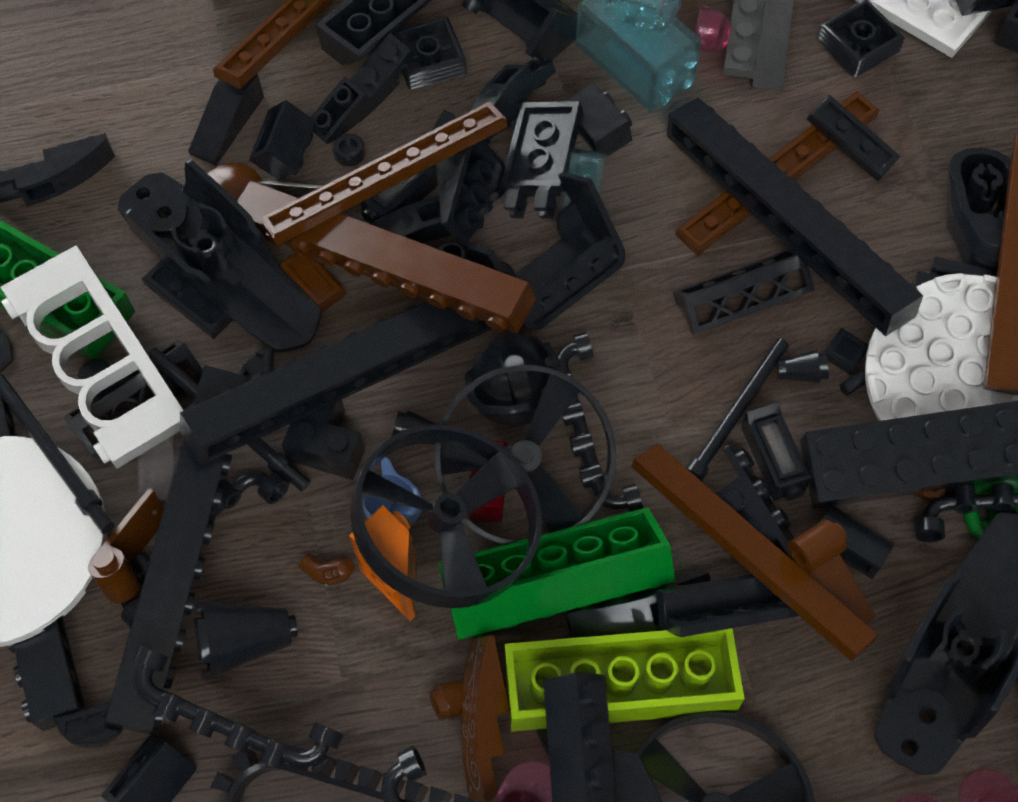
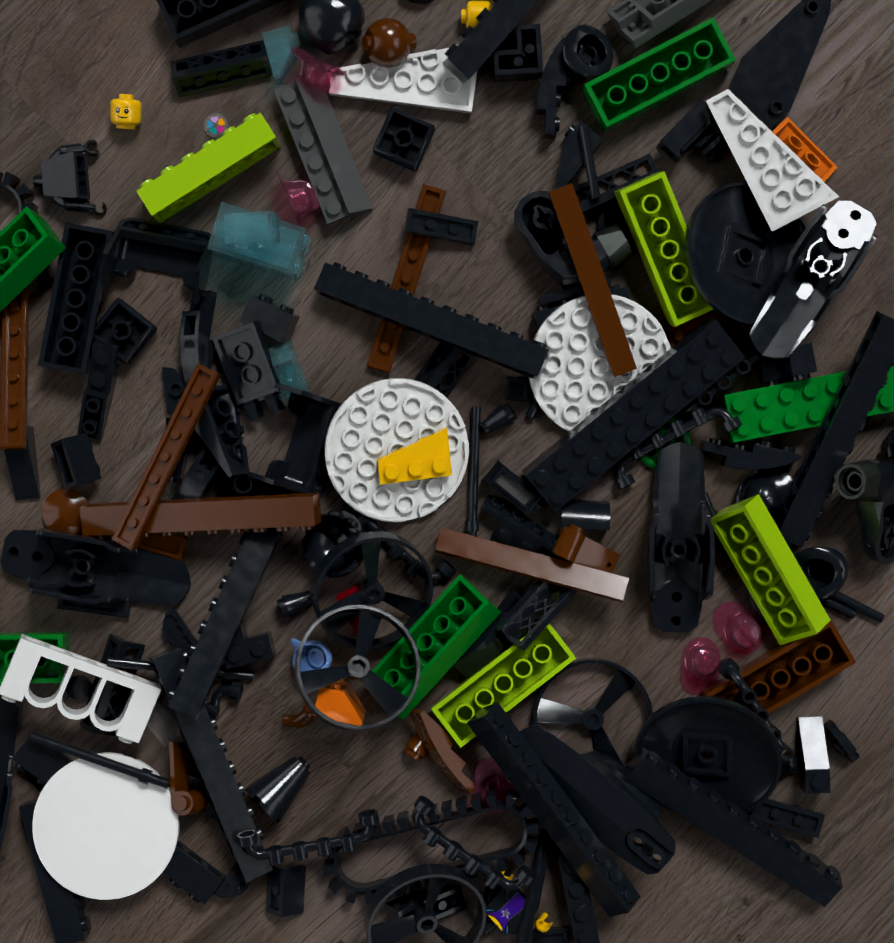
camera: 30 degrees left, 25 degrees up
(291, 184) = (114, 482): white sticker -> none
(349, 150) = (119, 434): black tile -> none
(658, 326) = (378, 422): none -> white tile
(677, 346) = (417, 461): none -> yellow wing

